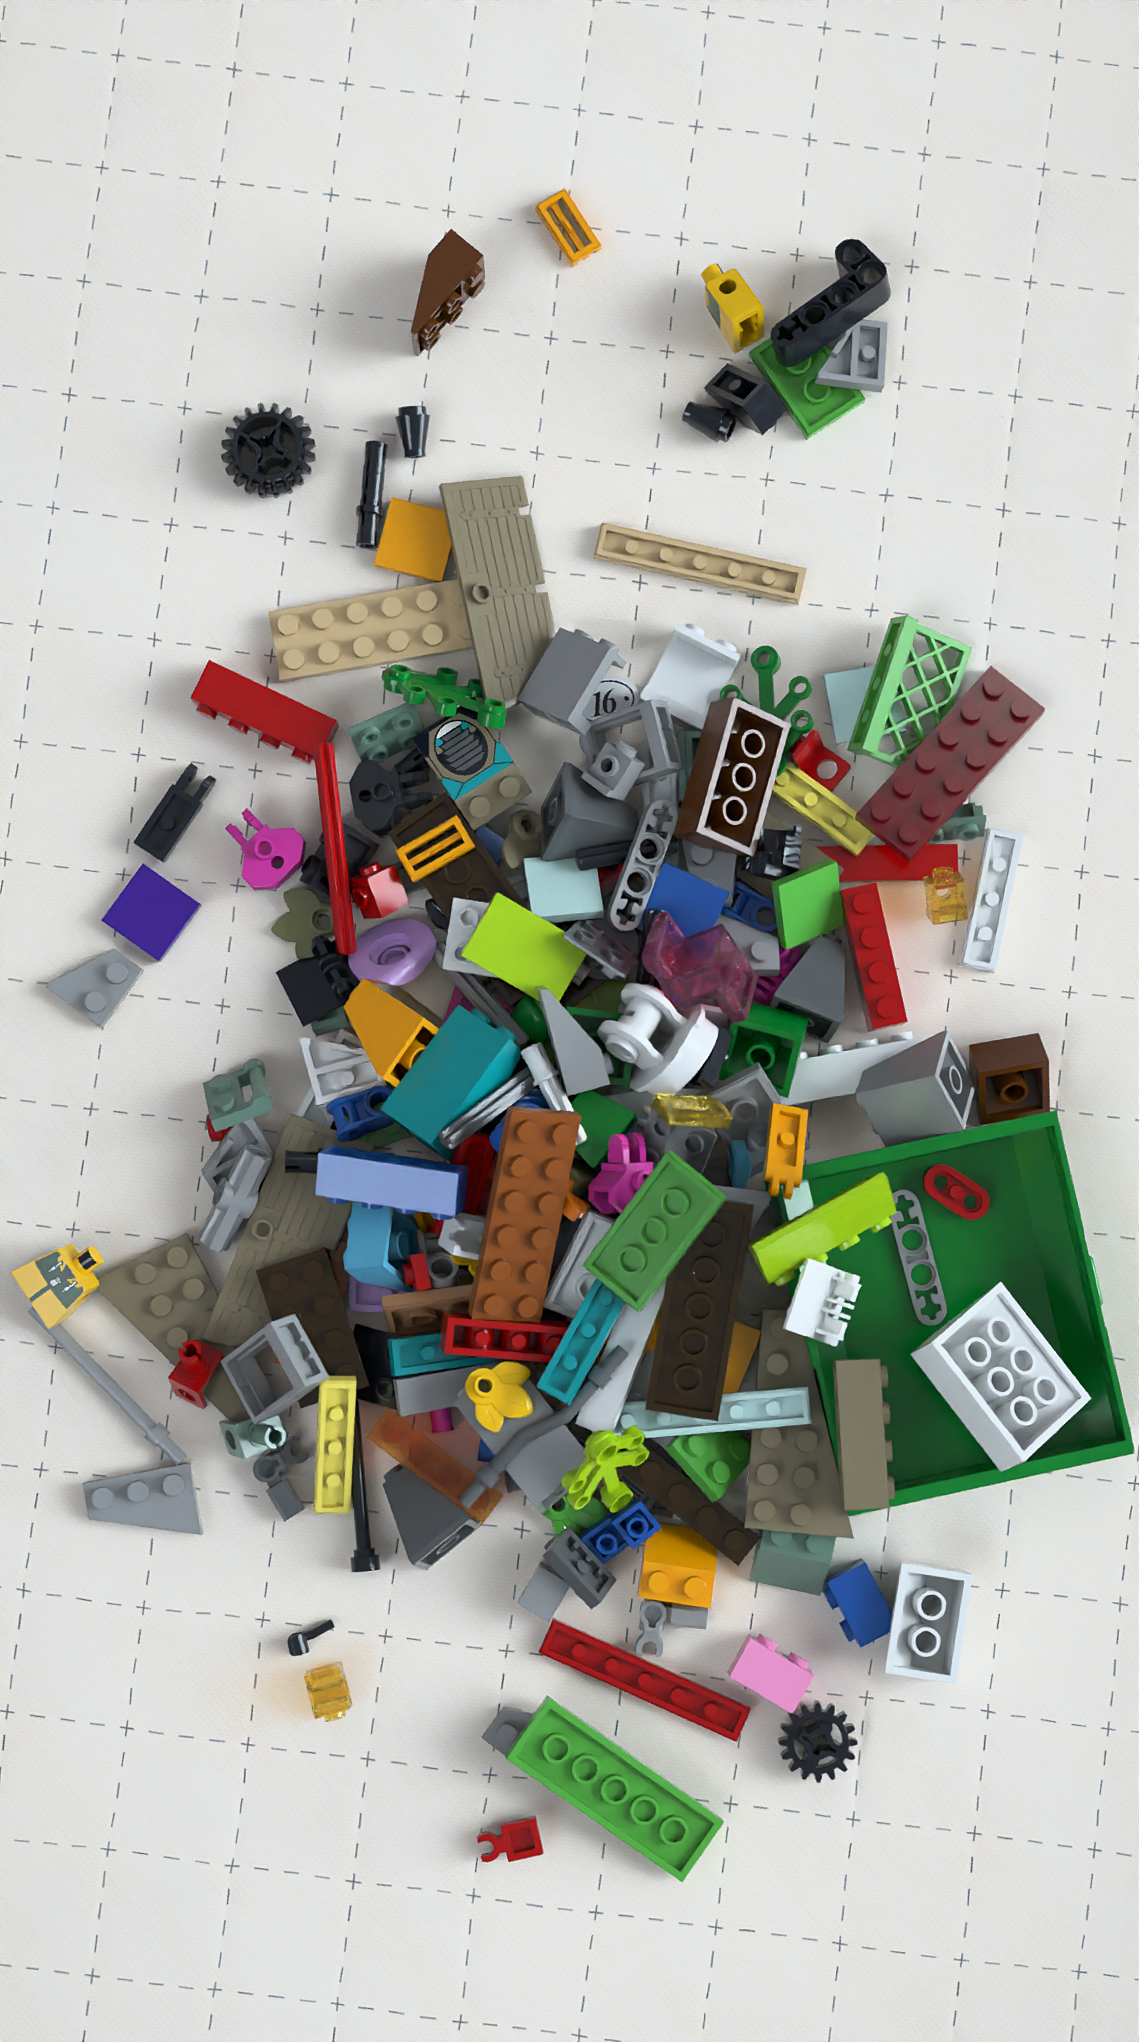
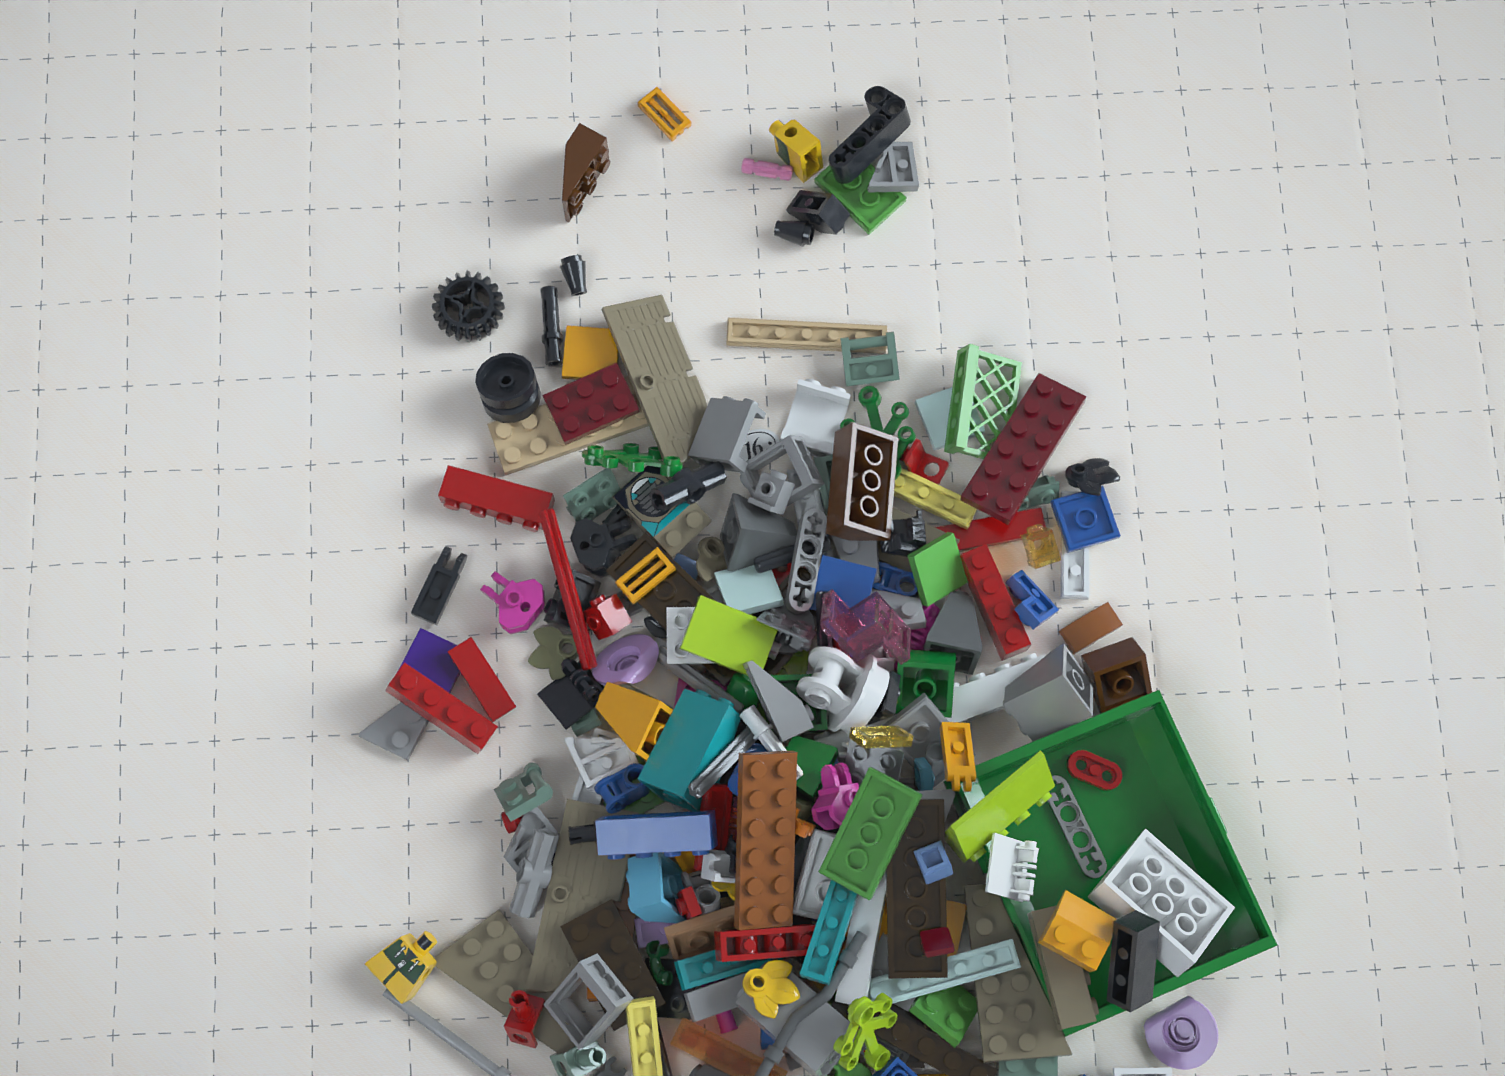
camera: 10 degrees left, 10 degrees down
(152, 973) = (441, 708): none -> red brick
(209, 943) = (481, 679): none -> red tile
(301, 570) = (508, 387): none -> black wheel
(367, 1345) = (657, 970): none -> dark green arm
(404, 609) = (591, 403): none -> dark red plate
(480, 1217) = (730, 849): none -> black hand
(508, 743) = (688, 486): none -> black piece
(689, 328) = (767, 169): none -> bright pink axle
(711, 1378) = (936, 942): none -> dark red slope
(725, 1280) = (933, 862): none -> medium blue slope
(774, 623) = (870, 368): none -> sand green plate
(889, 1397) = (1078, 932): none -> light orange slope
(925, 969) = (1035, 605): none -> blue plate
(948, 1445) = (1133, 961): none -> black brick
(988, 1011) = (1090, 628): none -> dark orange slope
(996, 1535) = (1182, 1034): none -> lavender hat
(1010, 870) = (1085, 520): none -> blue tile
(1030, 813) = (1091, 475): none -> black plate

